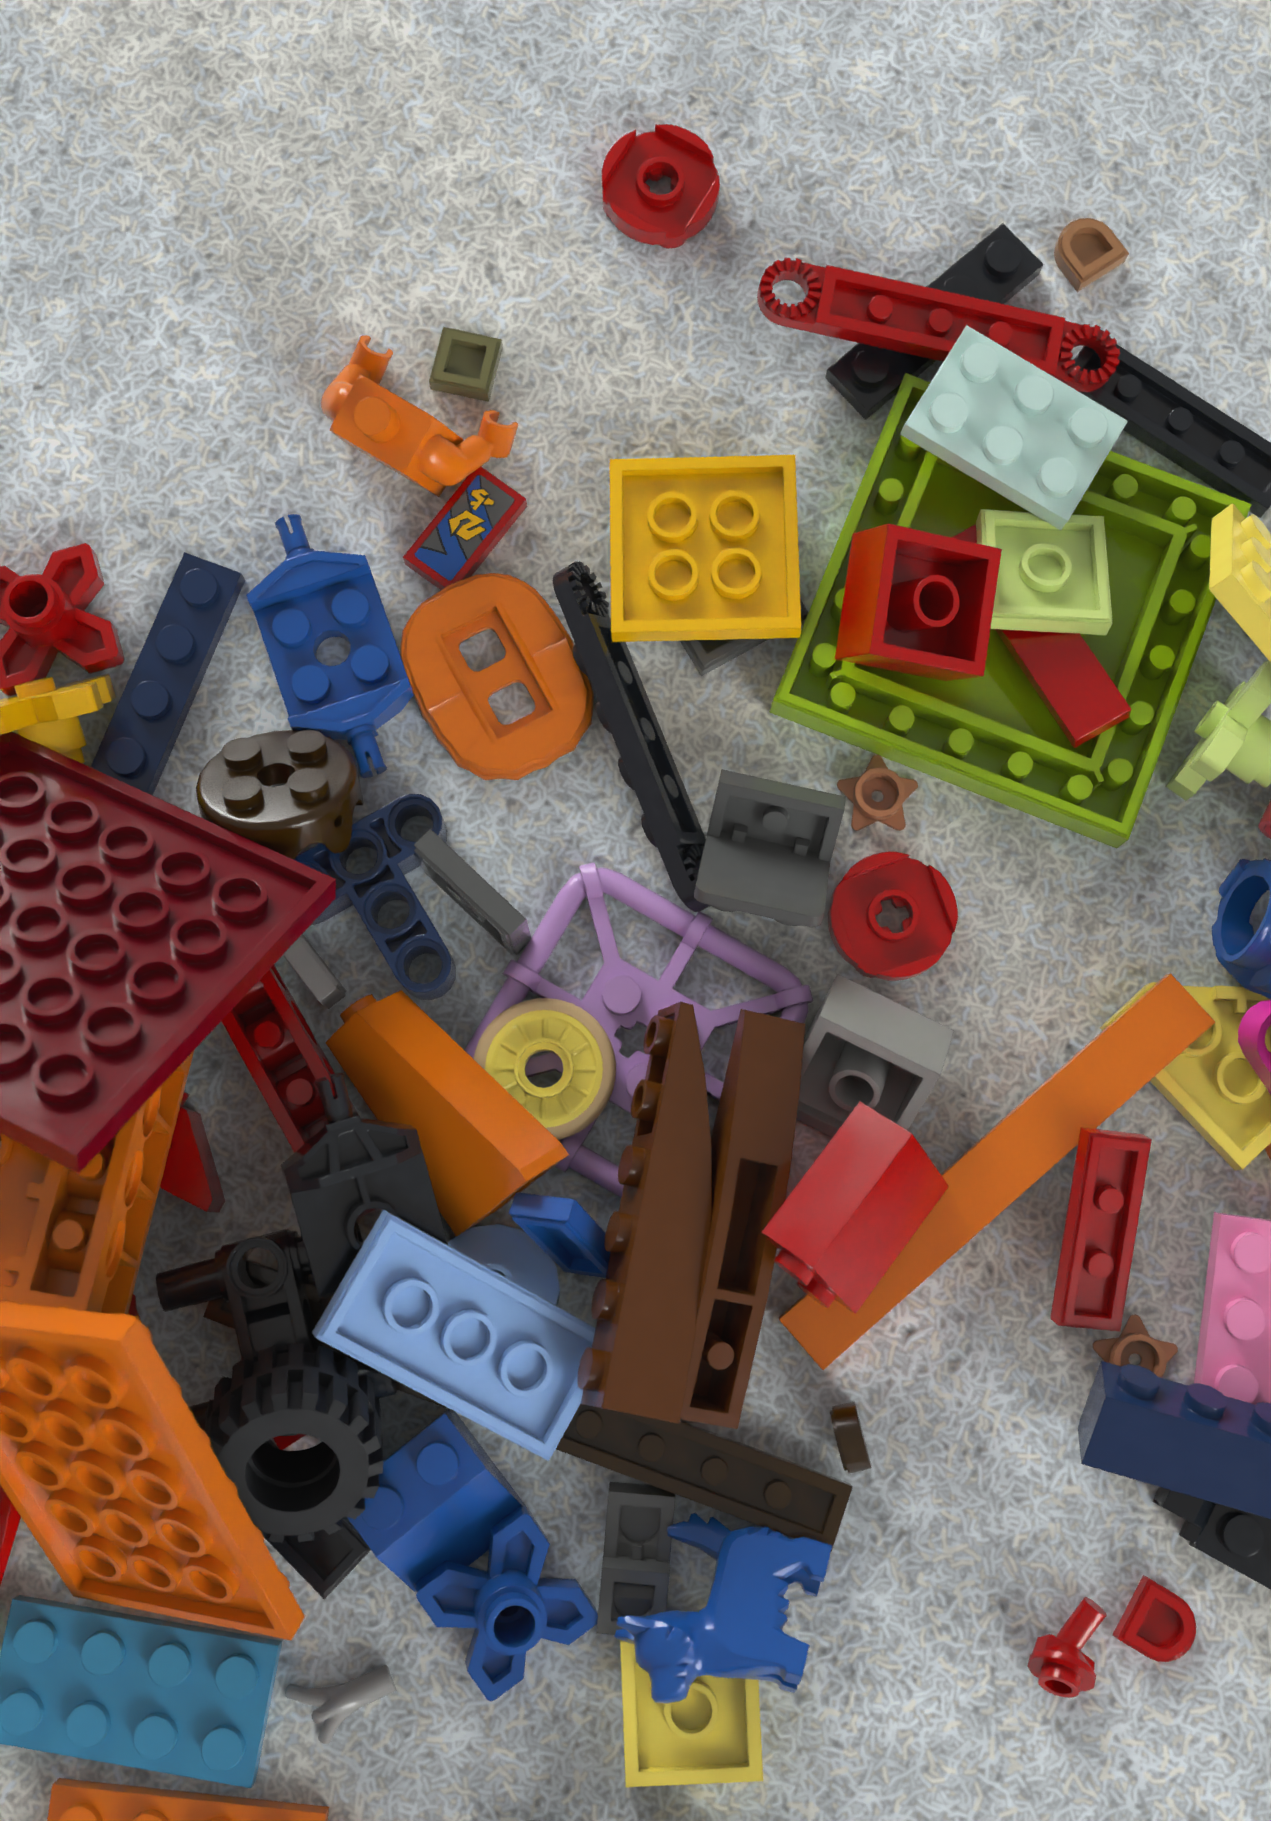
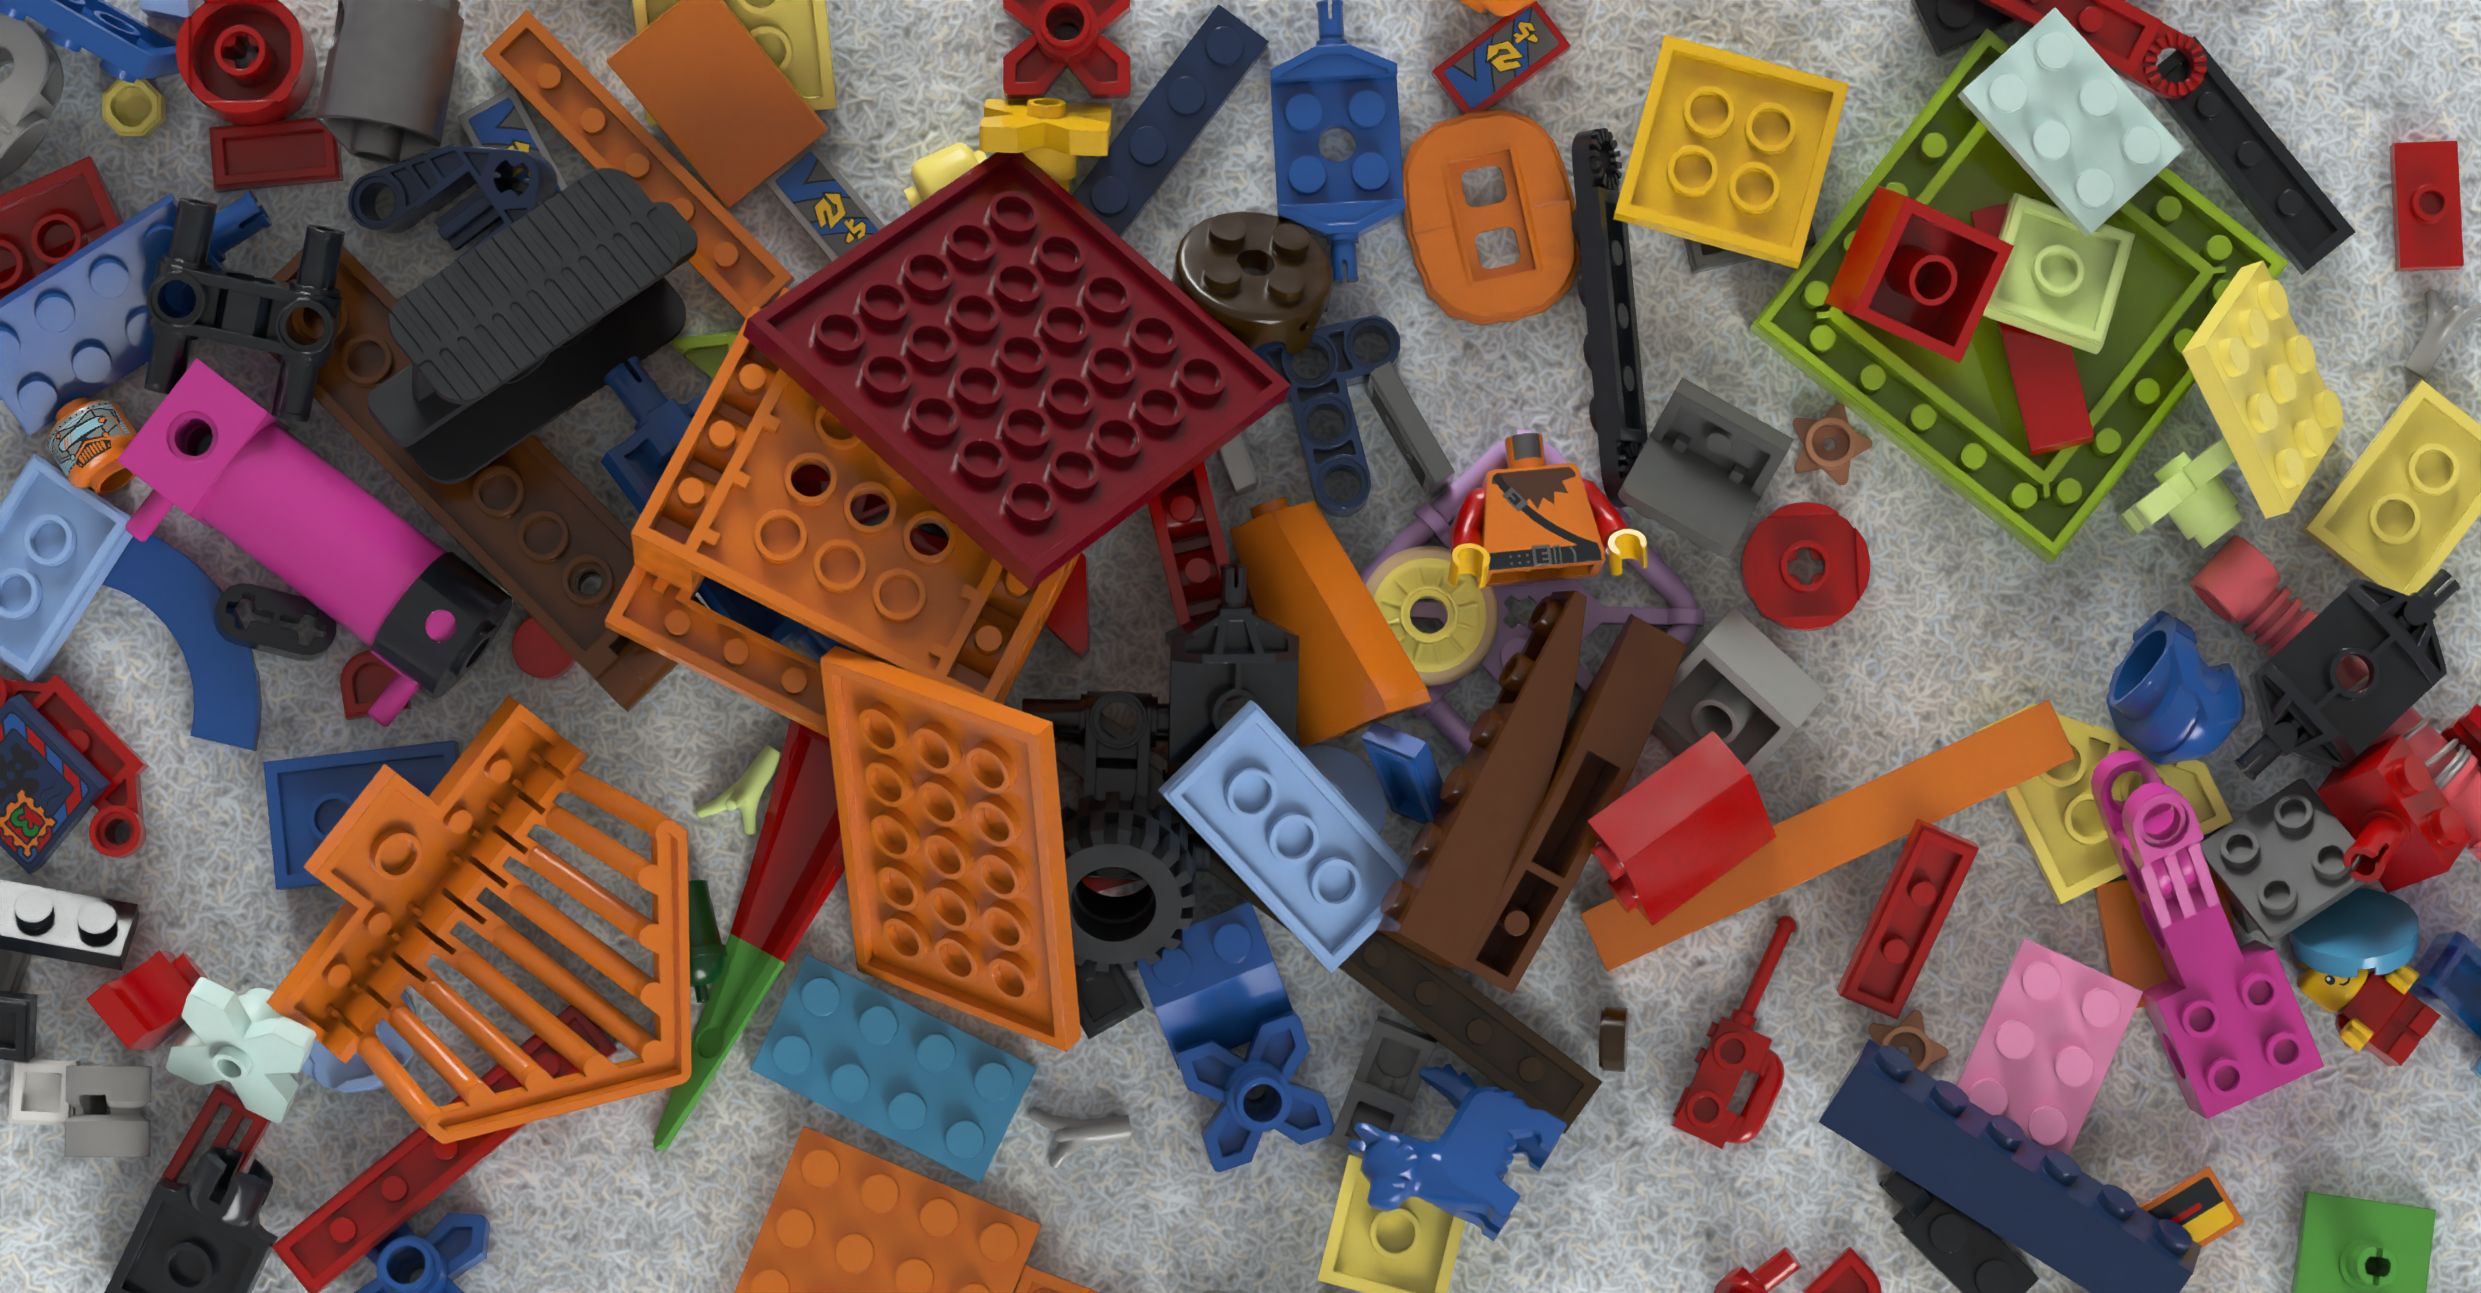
camera: 20 degrees right, 5 degrees up
(625, 948) = (1538, 524): none -> torso
(964, 1424) = (1731, 1051): none -> red piece

